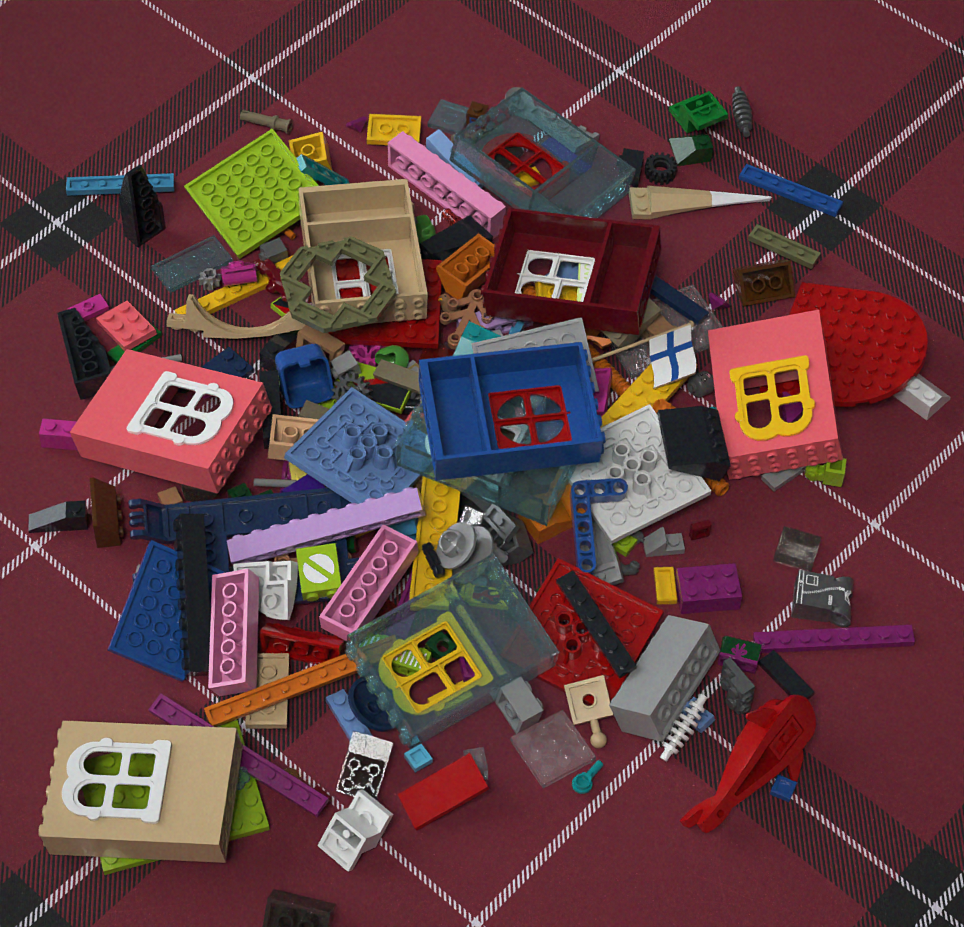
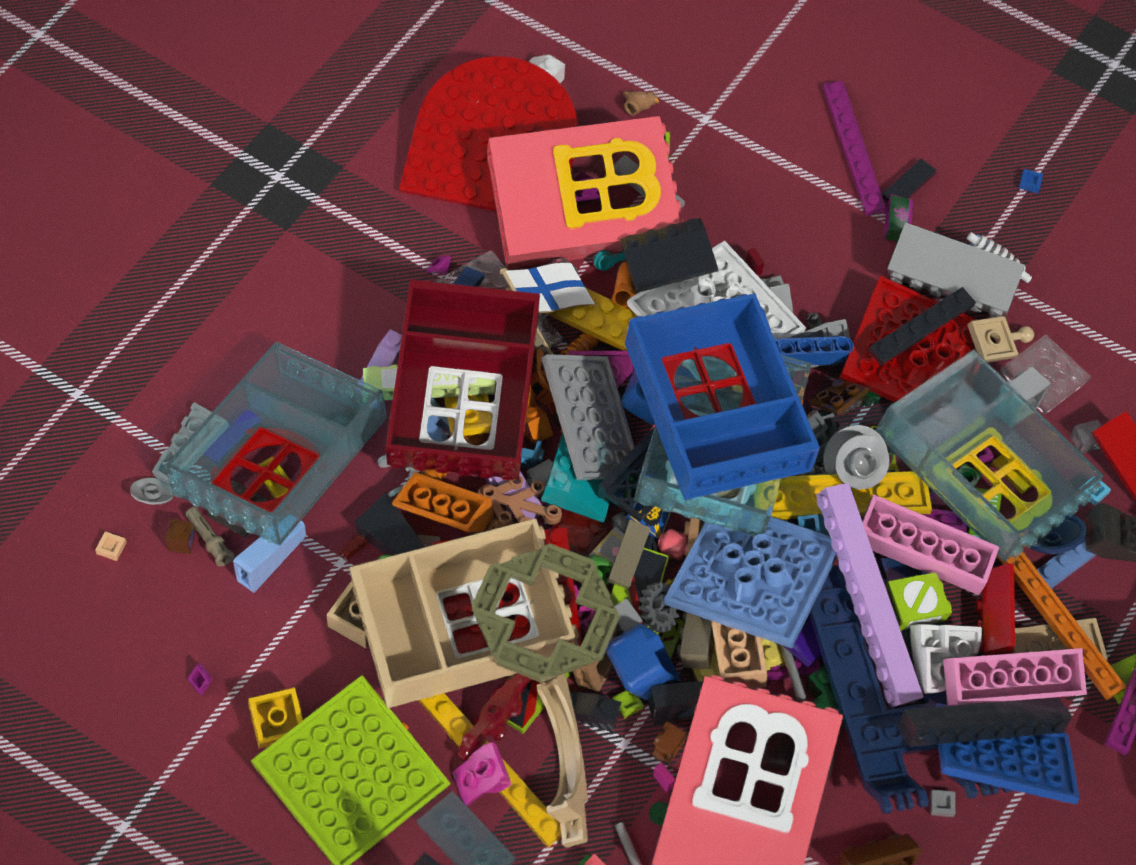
camera: 100 degrees left, 5 degrees up
(169, 496) = (832, 797): medium nougat tile -> none
(210, 279) = (497, 815): light grey gear -> none
(230, 363) = (621, 766): dark blue wing -> none
(273, 122) = (211, 779): dark tan pin -> none
(273, 250) = (440, 741): dark grey brick -> none
(320, 172) = (322, 687): teal plate -> none
(385, 127) = (210, 632): yellow plate -> none
(433, 560) = (875, 489): black axle -> none
(444, 183) = (307, 554): bright pink brick -> none
(448, 117) = (178, 572): clear light blue tile -> none
(479, 81) = (111, 546): none -> light nougat tile
(535, 559) = (840, 397): none -> reddish brown slope
(583, 782) = (1076, 342): teal plate -> none
(635, 159) = (241, 360): black slope -> none
(660, 161) = (243, 324): black tyre -> none
(663, 201) = (292, 319): tan plate -> none
(665, 585) = (826, 292): yellow tile -> none
(691, 149) = (204, 305): dark green slope -> none
(698, 112) = (157, 295): green bracket -> none
(708, 588) = (827, 250): magenta brick -> none
(738, 687) = (945, 213): dark grey plate -> none
(742, 111) = (142, 257): dark grey piece -> none
(762, 750) = (1002, 182): red animal -> none
(764, 282) = (404, 222): reddish brown slope -> none
(784, 246) = (349, 207): olive plate -> none
(791, 190) = (258, 207): blue tile -> none
(797, 549) = (756, 179): clear smoke slope -> none
(822, 598) = (814, 155): flat silver piece -> none
(892, 468) = (639, 101): none -> medium nougat animal

